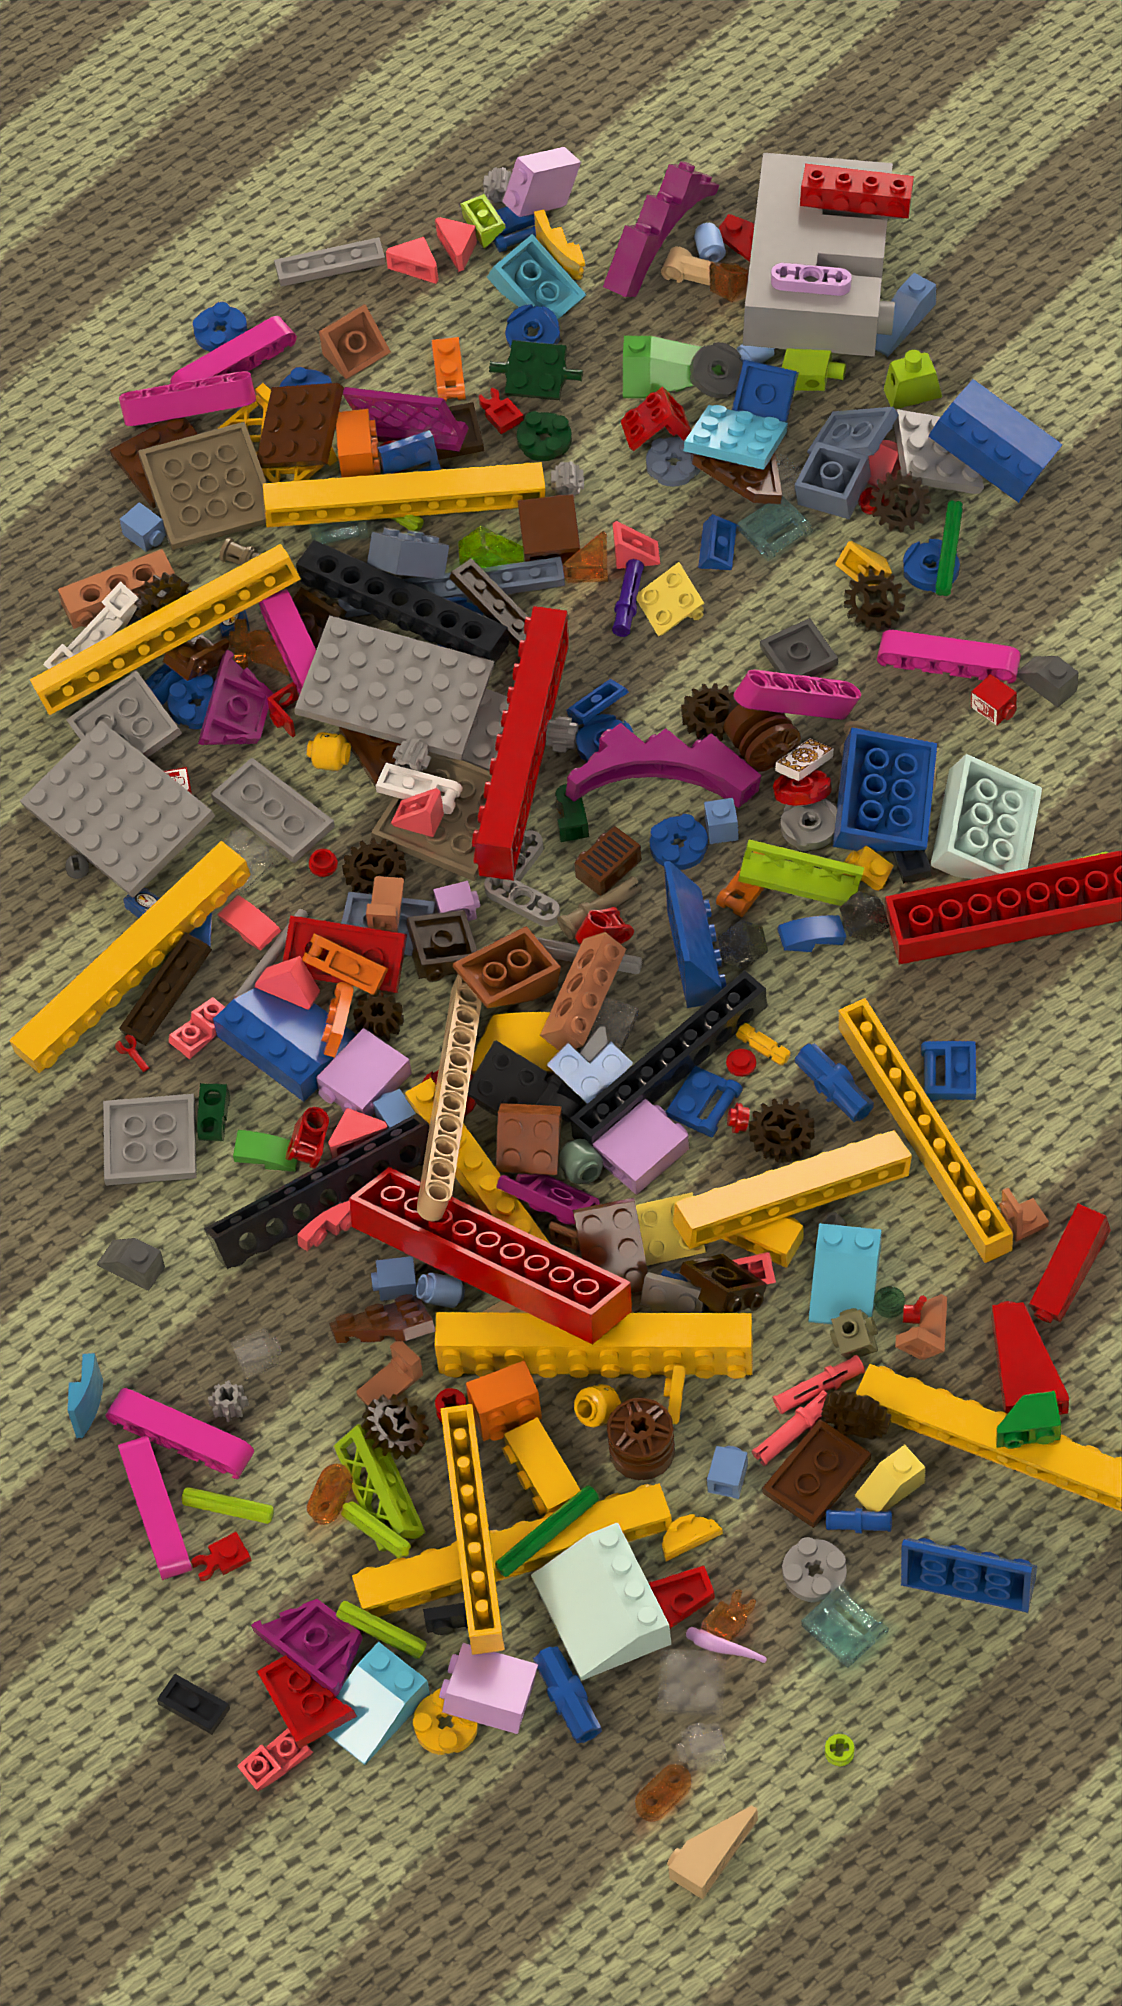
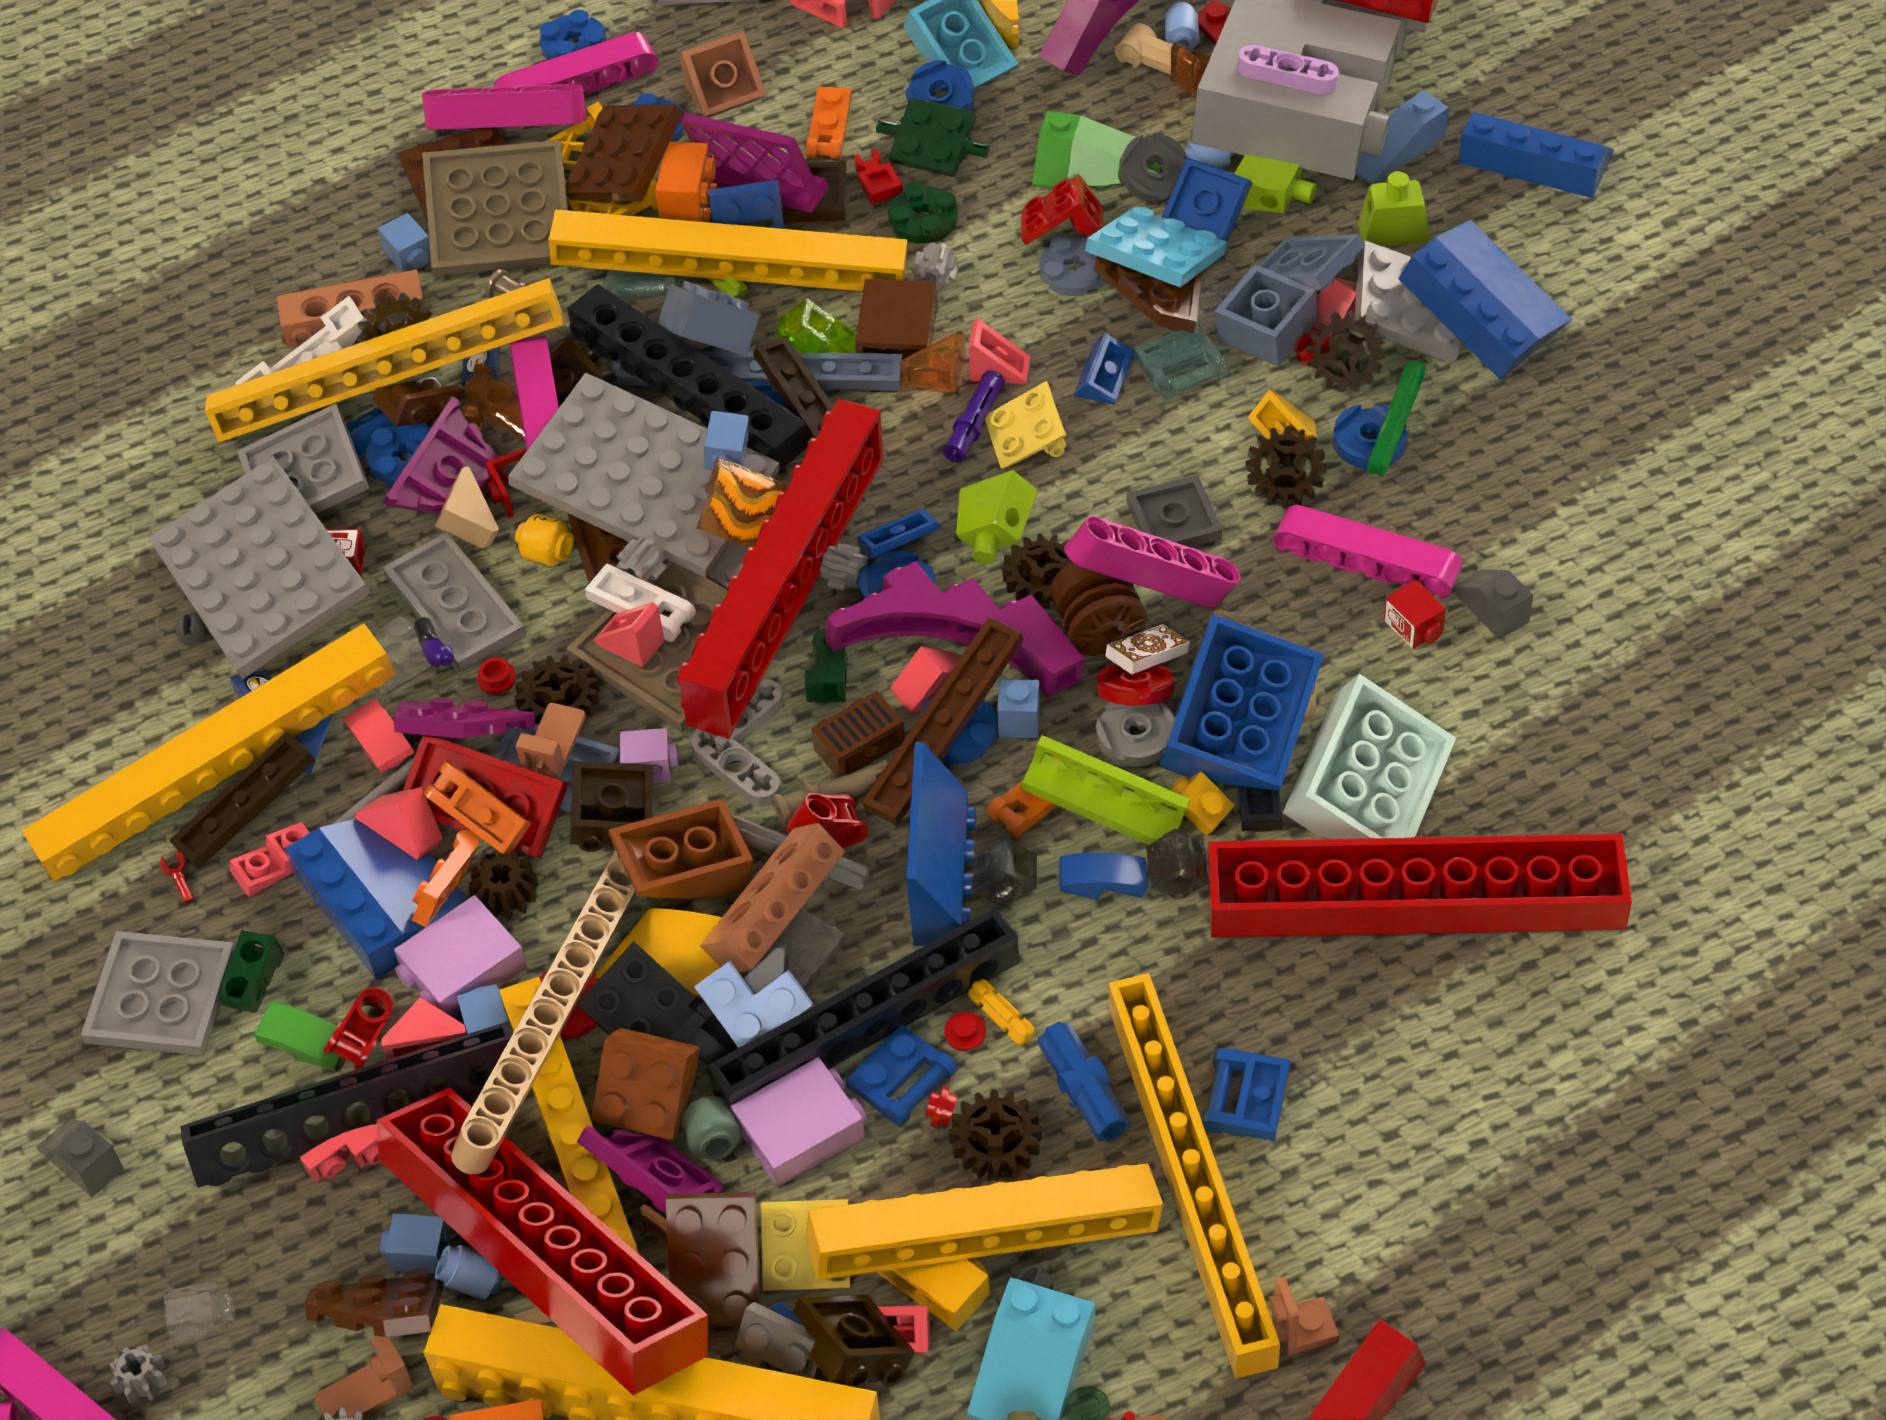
camera: 10 degrees right, 5 degrees down
(263, 739) = (467, 513): none -> tan slope
(270, 847) = (430, 643): none -> arm
(310, 902) = (457, 721): none -> magenta wing
(454, 654) = (726, 438): none -> medium blue brick
(477, 701) = (738, 503): none -> slope
(649, 808) = (923, 677): none -> coral slope
(666, 674) = (994, 513): none -> lime torso
(670, 838) = (945, 716): none -> reddish brown plate
(1008, 311) = (1534, 154): none -> blue slope

